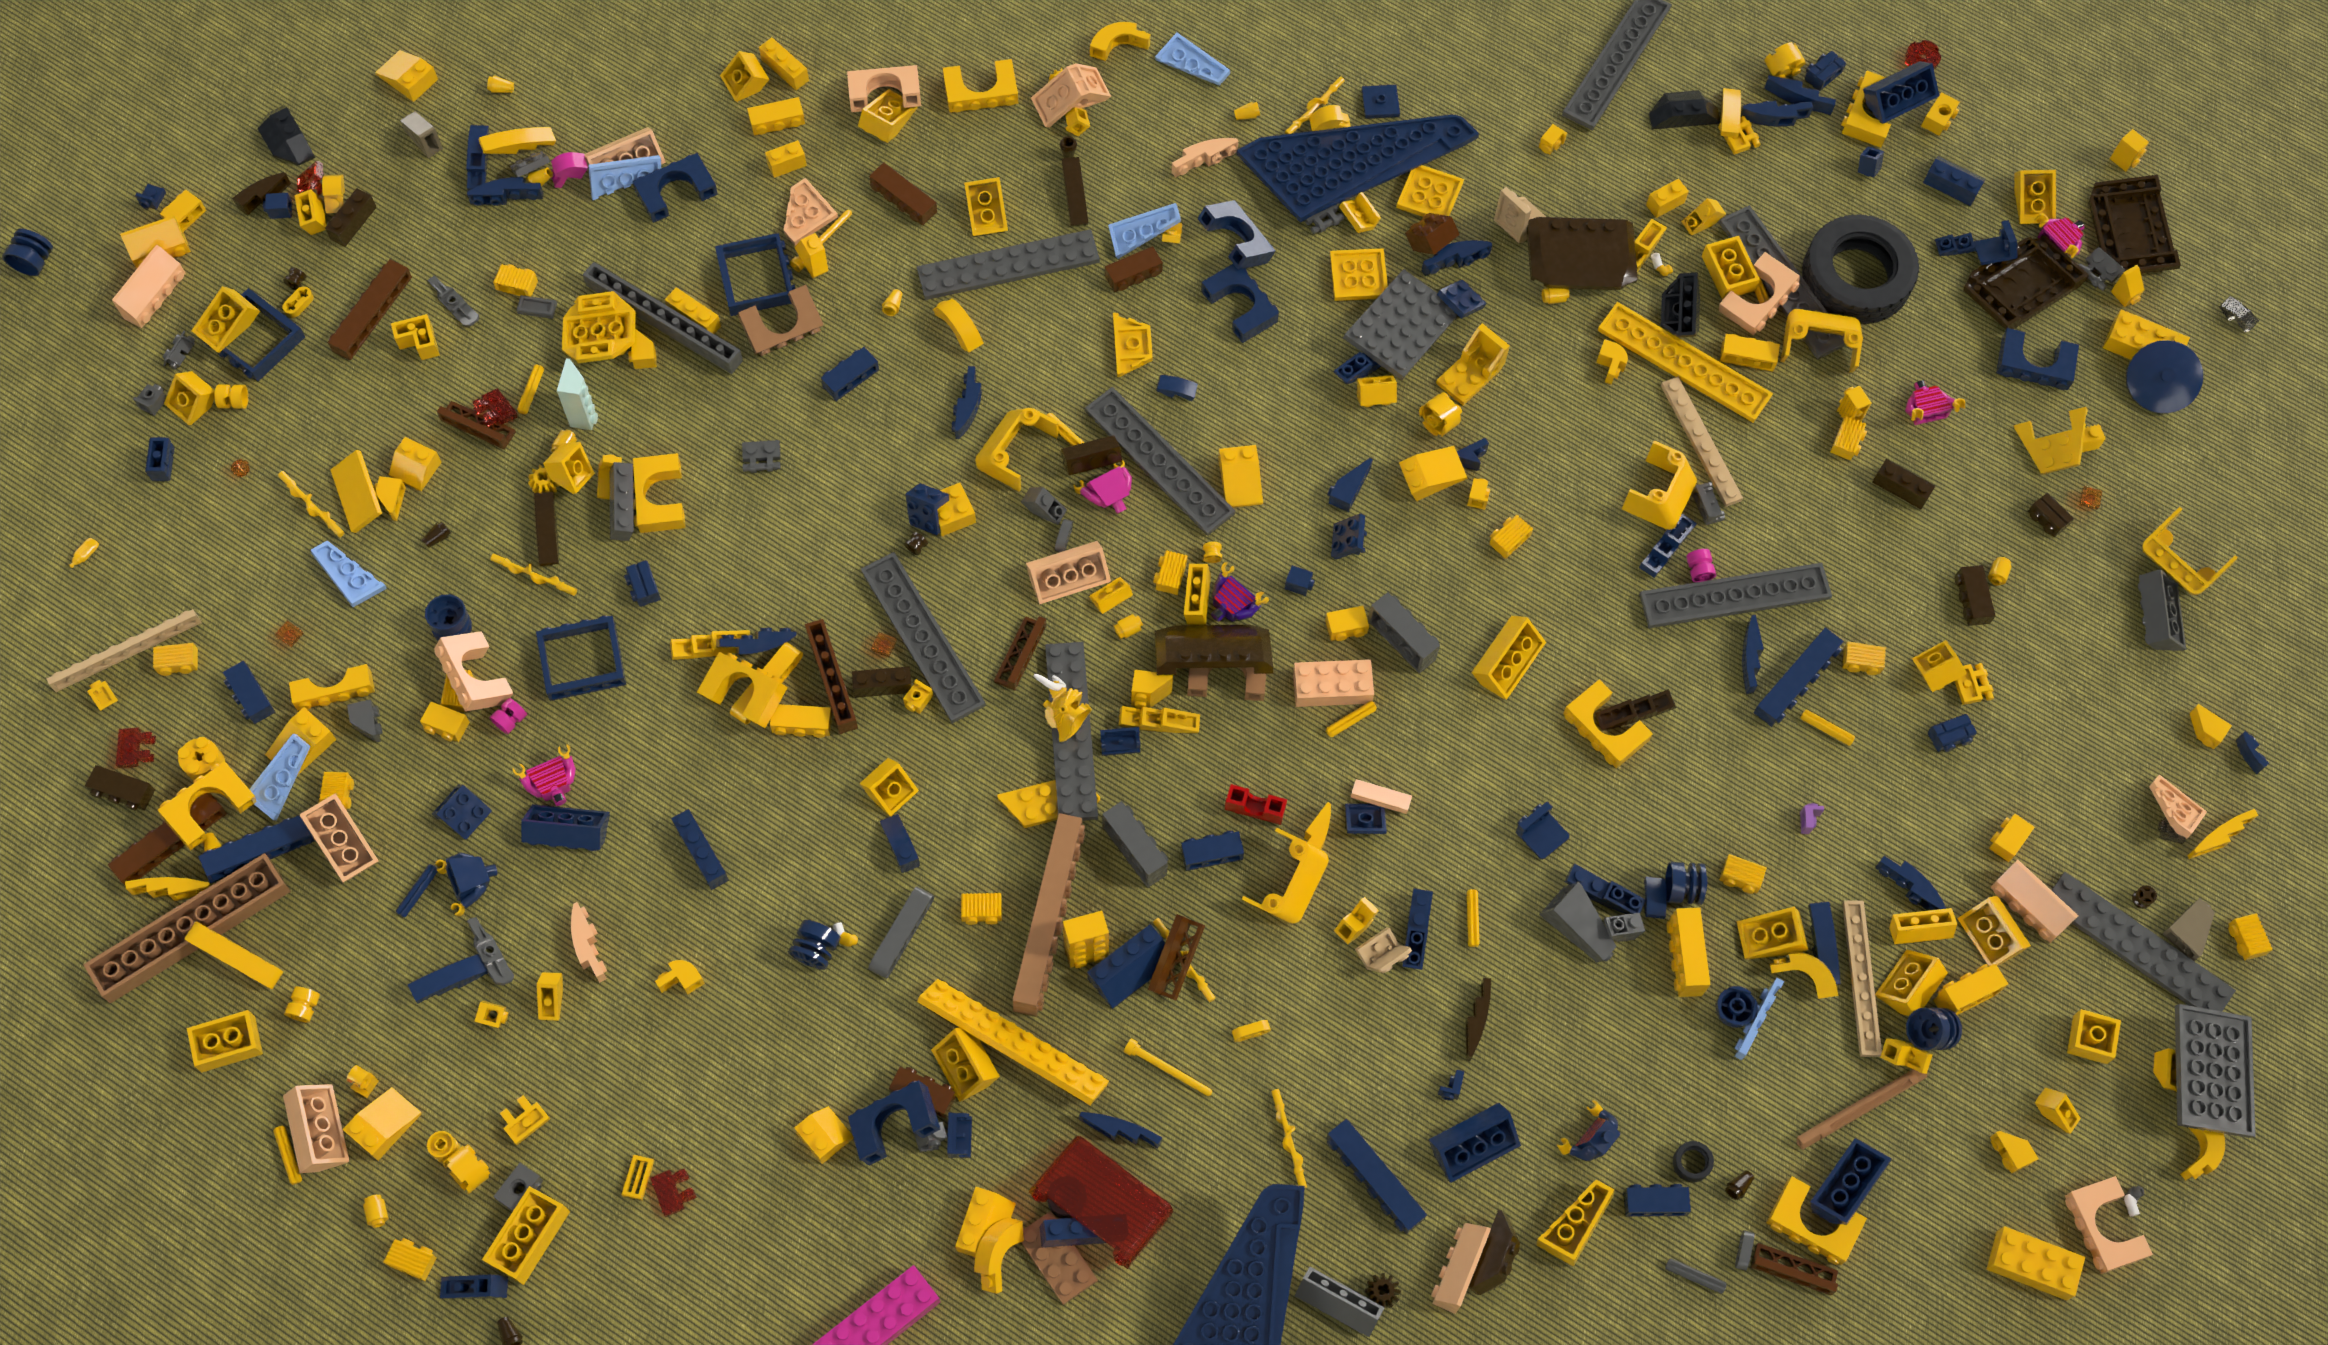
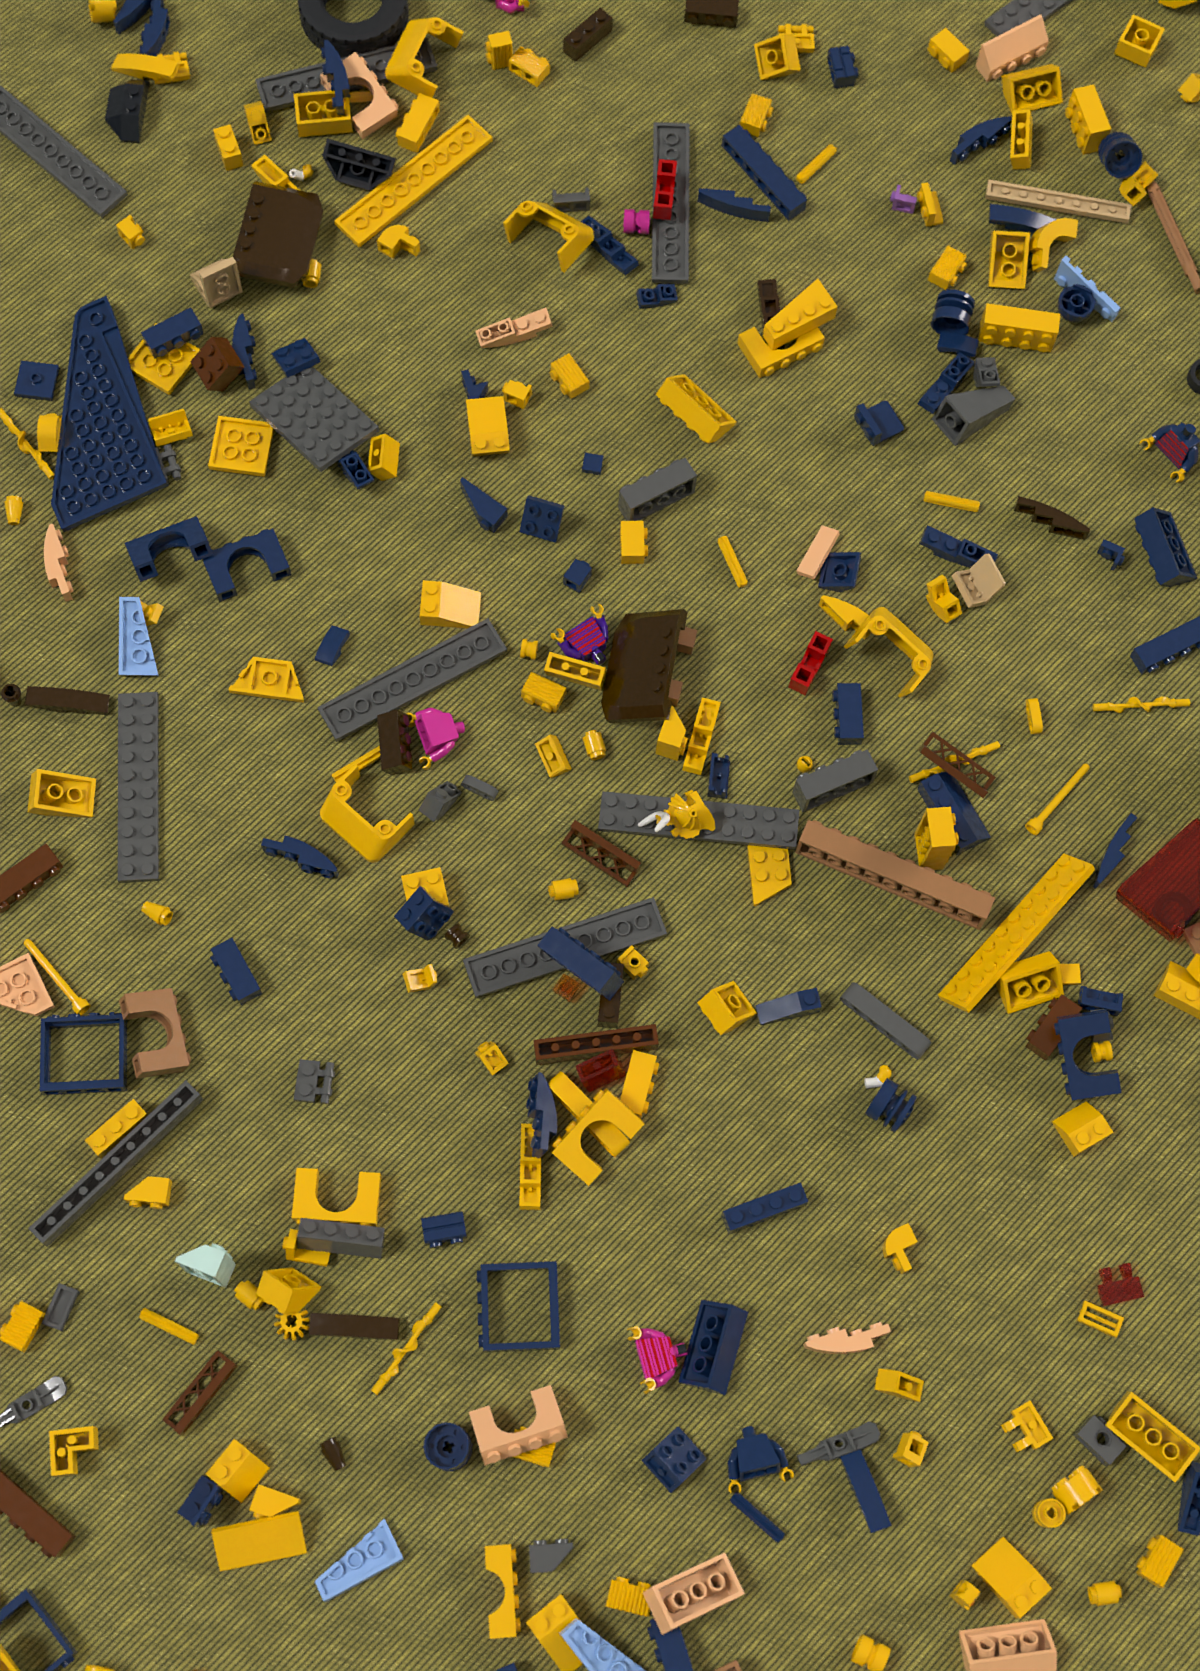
camera: 80 degrees left, 5 degrees up
(289, 634) = (423, 1636): clear orange plate -> none
(311, 508) = (268, 1596): yellow piece -> none
(380, 442) = (201, 1501): none -> dark blue bracket
(444, 722) = (567, 1466): yellow brick -> none
(499, 407) = (183, 1364): clear red plate -> none
(503, 721) = (579, 1400): dark pink wheel -> none
(598, 328) = (96, 1237): yellow piece -> none
(806, 593) = (491, 1057): none -> yellow bracket
(806, 683) = (600, 1070): none -> clear red brick
(813, 255) = (77, 986): yellow slope -> none
(869, 520) = (420, 979): none -> yellow bracket
(898, 641) = (581, 962): none -> dark blue brick
(905, 1143) = (1101, 1051): none -> yellow wheel
(960, 324) = (203, 844): yellow arch -> none
(978, 625) = (563, 889): none -> yellow brick
(981, 908) = (872, 939): yellow brick -> none
(982, 1103) = (1070, 974): none -> yellow tile
(1068, 572) = (521, 790): light nougat slope -> none
(1133, 269) = (180, 660): reddish brown brick -> none
(1155, 822) = (802, 766): none -> yellow hinge
(1333, 683) = (694, 568): light nougat brick -> none
(1423, 575) = (592, 463): none -> dark blue tile
(1440, 414) = (426, 405): yellow brick -> none
(1453, 191) = (172, 333): none -> dark blue brick
(1478, 364) = (373, 361): yellow bracket -> none
(1545, 478) = (514, 331): none -> light nougat slope
(1624, 601) = (655, 297): none -> dark blue slope
(1632, 729) = (800, 316): none -> yellow wedge
(1701, 442) = (501, 189): tan plate -> none
(1754, 580) = (664, 189): none -> red arch
(1770, 260) = (336, 75): none -> dark blue slope
(1811, 845) = (929, 206): none -> yellow bracket
(1912, 982) = (1068, 164): yellow slope -> none

